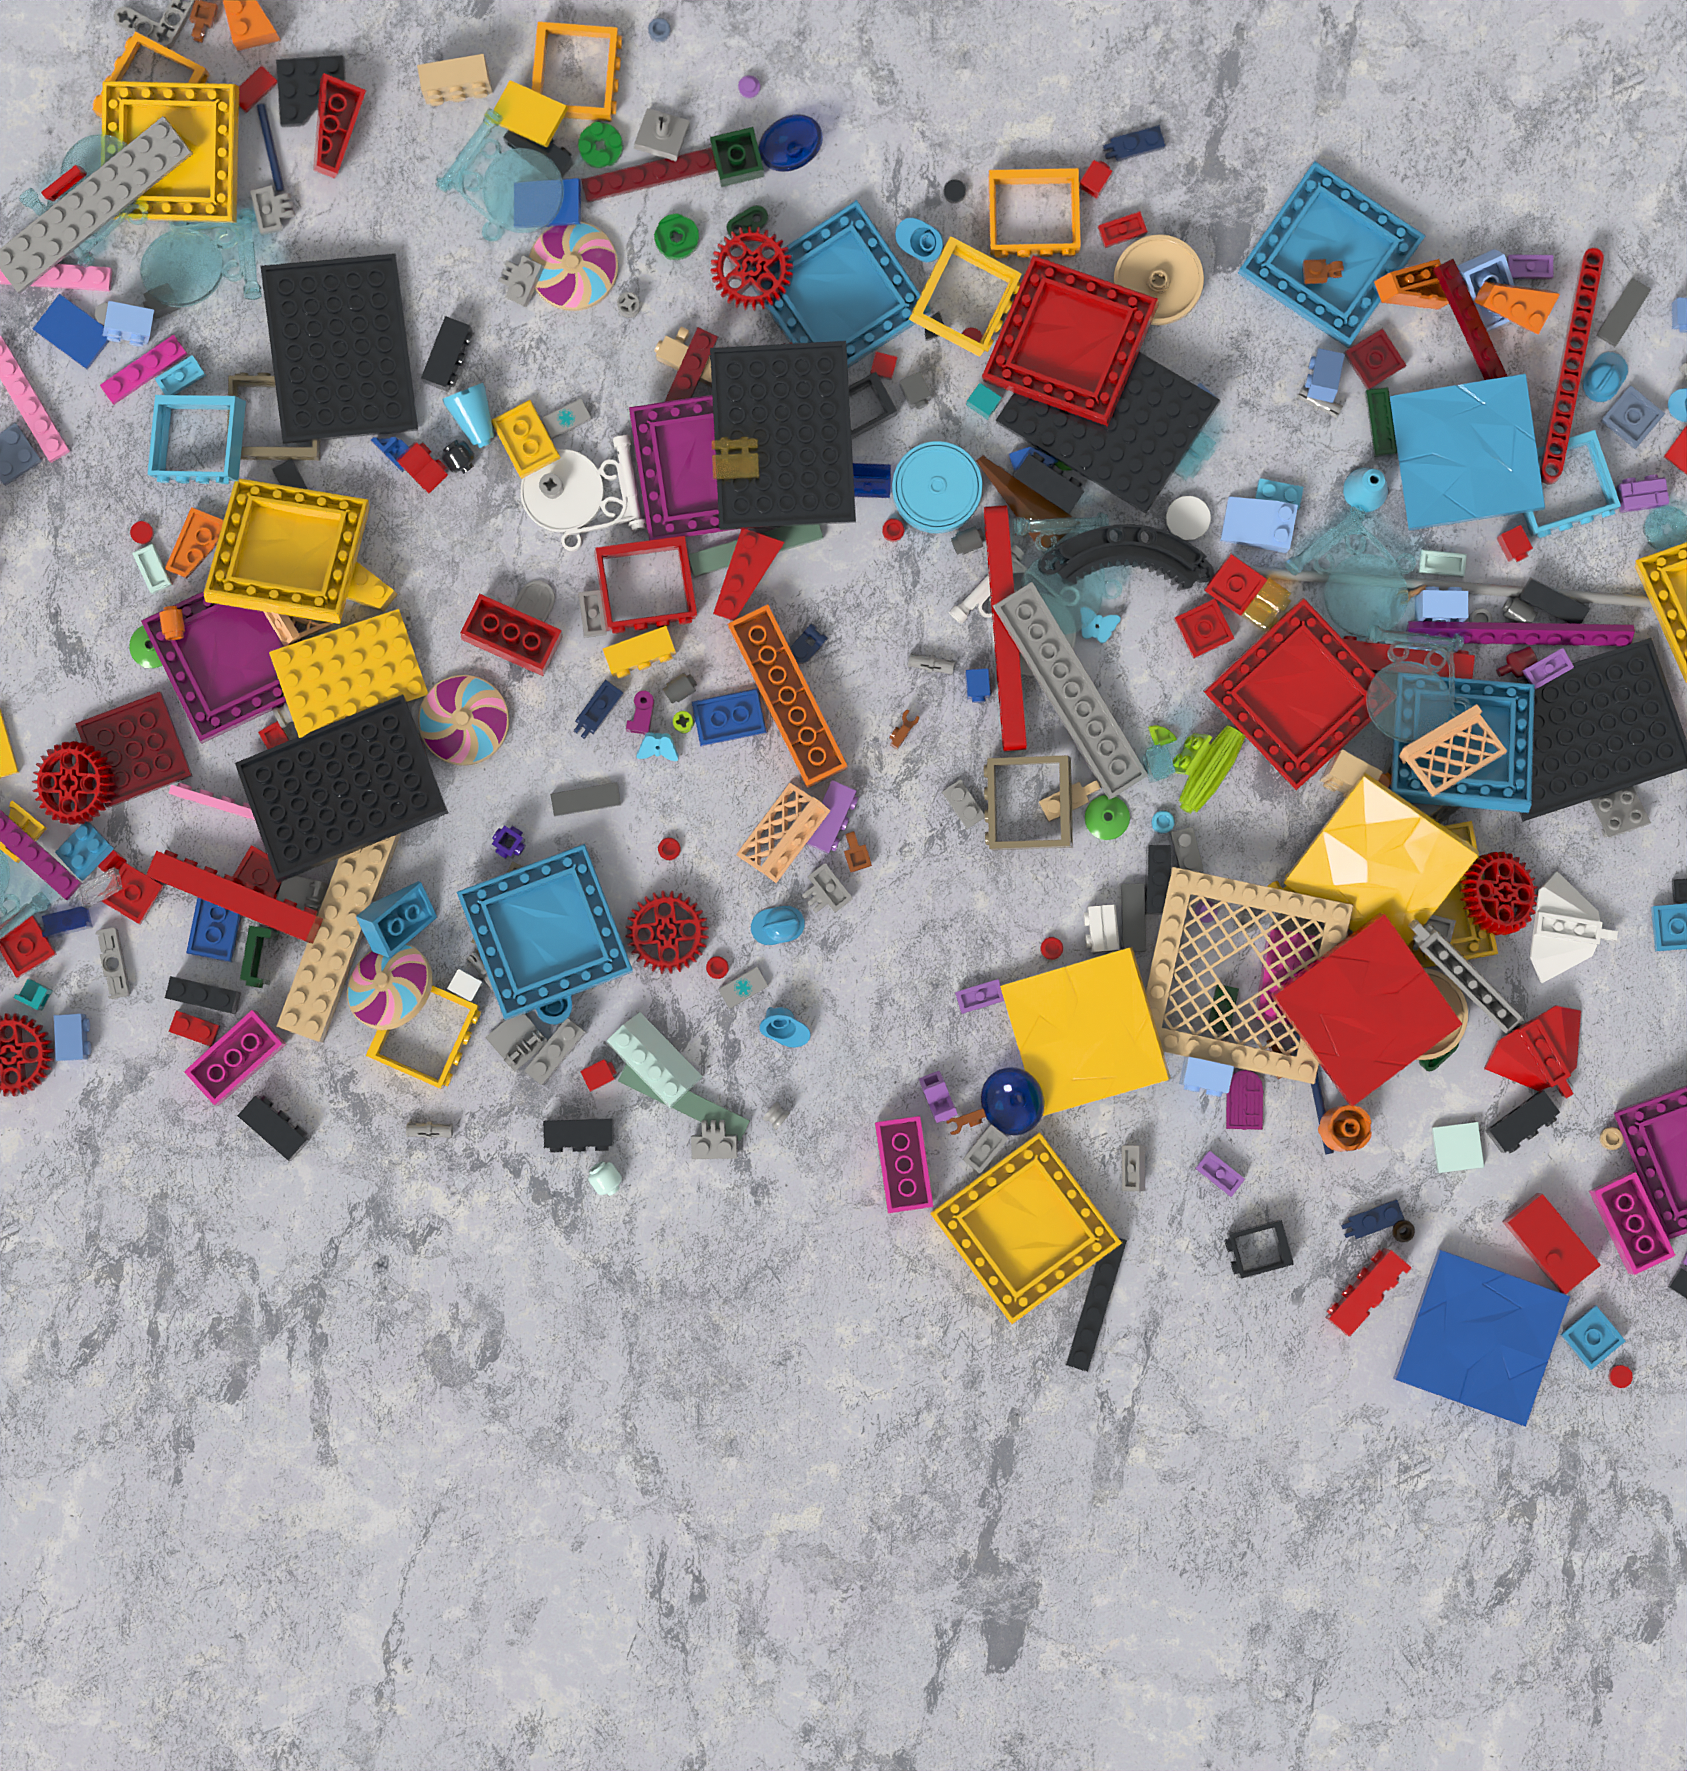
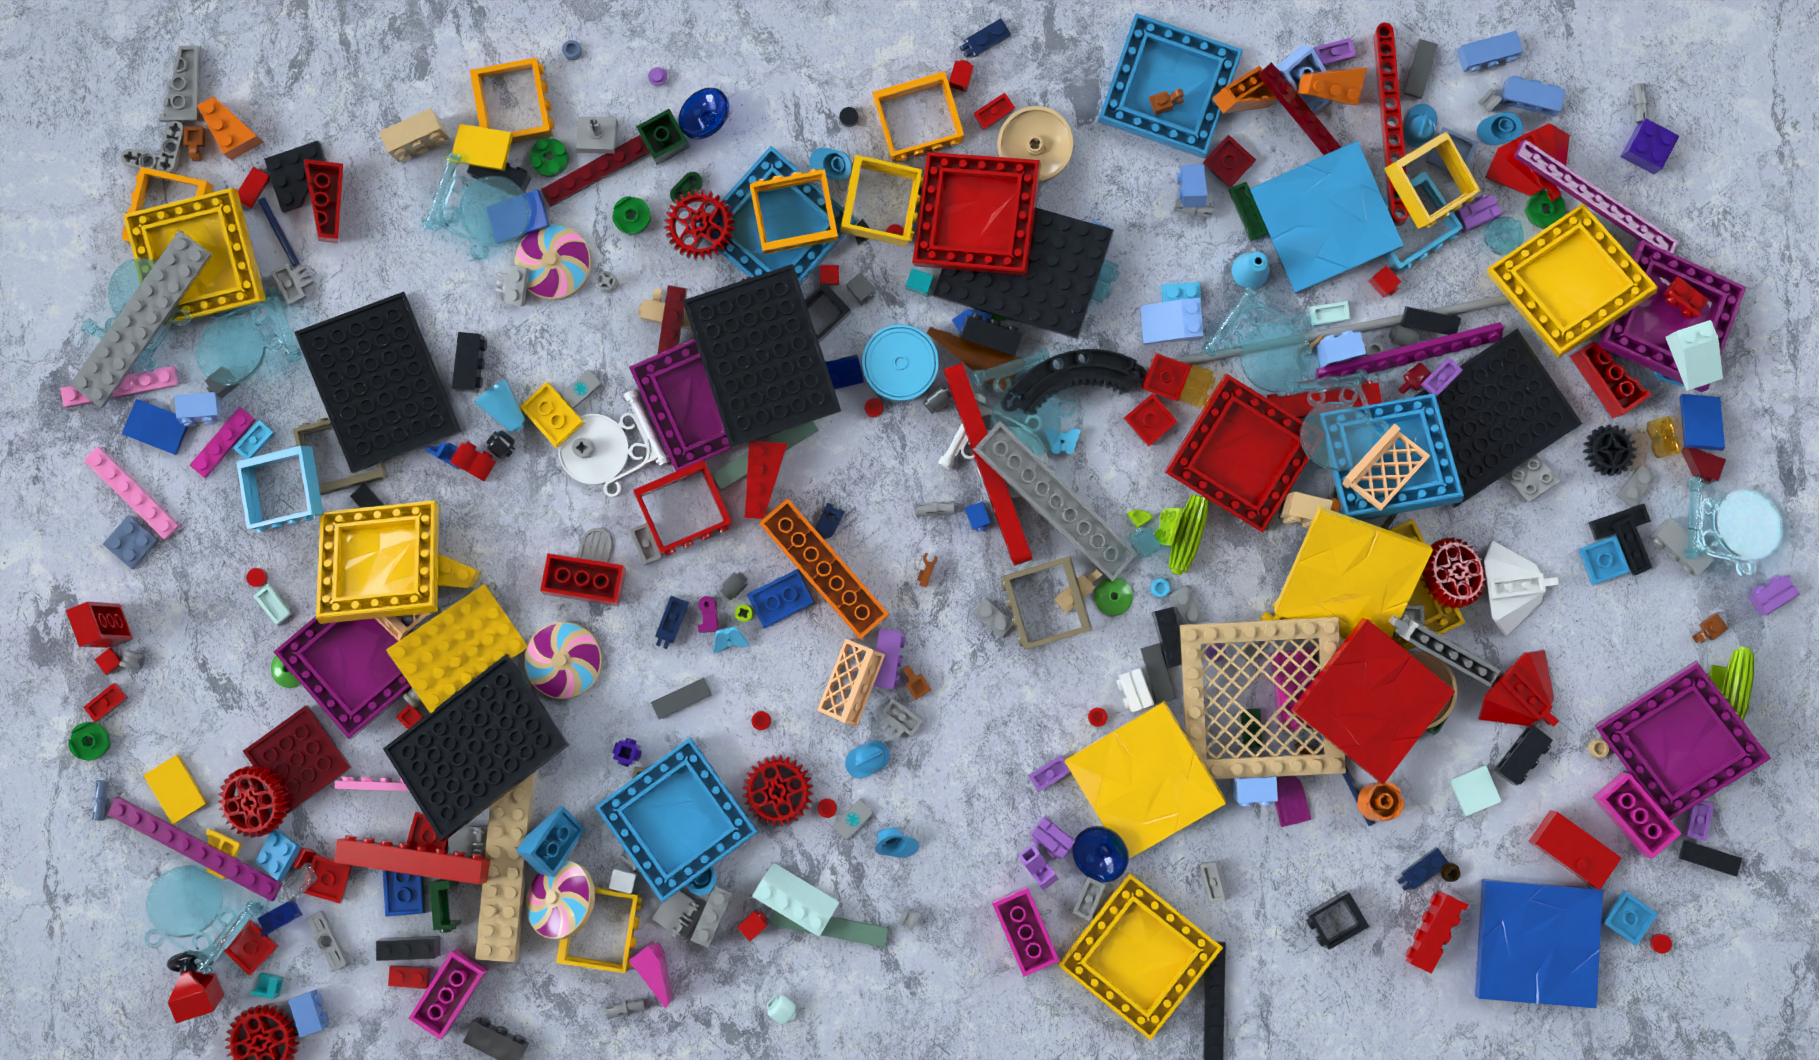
camera: 10 degrees left, 0 degrees up
(64, 183) = (113, 307): red tile -> none
(172, 623) = (299, 647): orange brick -> none
(194, 542) = (301, 574): orange wing -> none
(473, 1091) = (652, 967): none -> dark pink slope
(578, 1134) = (750, 978): black brick -> none
(639, 652) = (693, 565): yellow brick -> none
(714, 1142) = (863, 955): light grey hinge -> none
(735, 465) = (728, 392): clear yellow plate -> none
(861, 318) = (795, 179): none -> light orange window
(963, 1069) = (1052, 837): none -> medium lavender brick
(973, 1118) = (1070, 876): dark orange plate -> none
(1188, 518) = (1112, 332): white tile -> none
(1219, 1173) = (1286, 866): medium lavender plate -> none
(1631, 436) = (1455, 166): none -> yellow window

